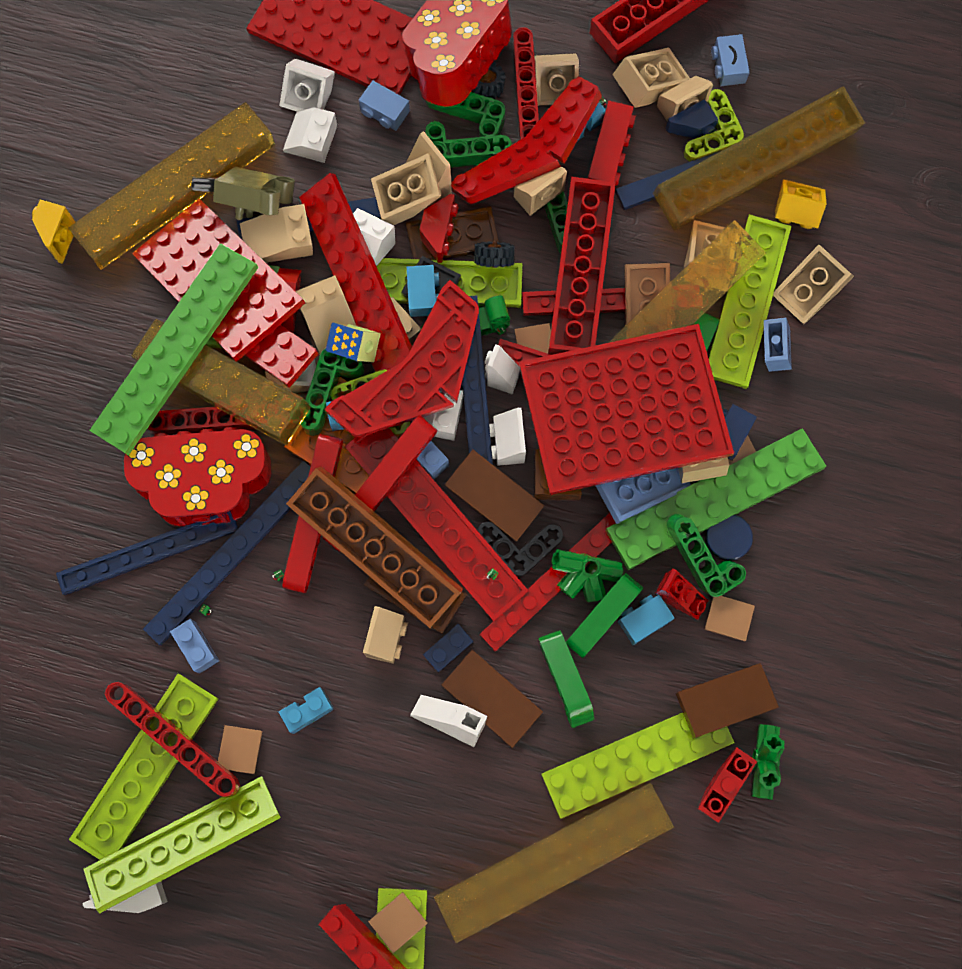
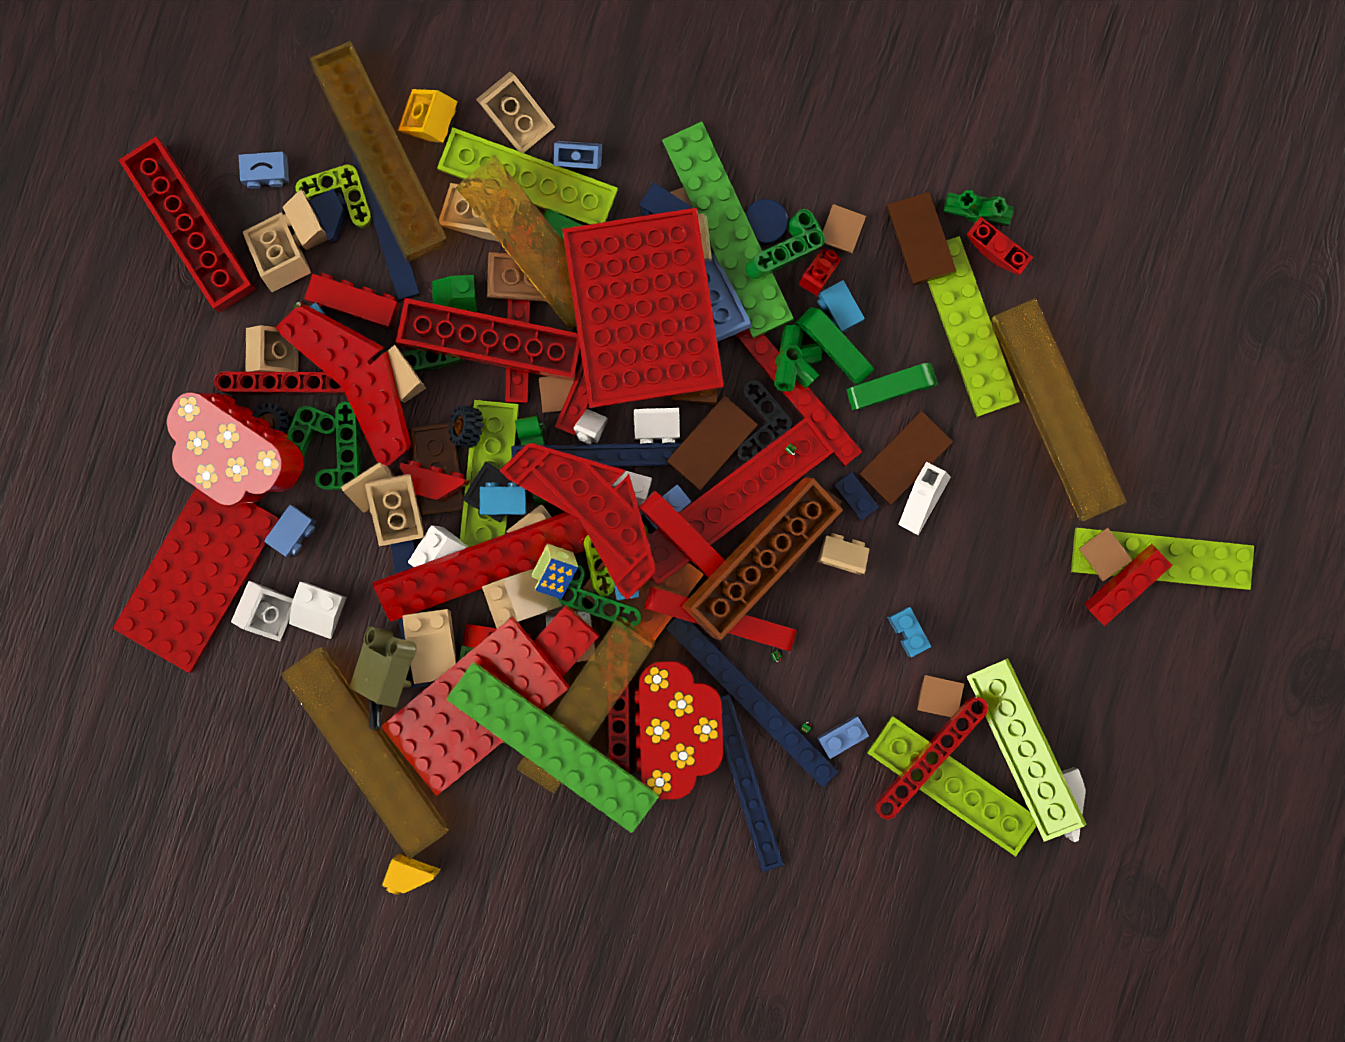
camera: 85 degrees left, 10 degrees up
(625, 242) = (456, 292): none -> green slope

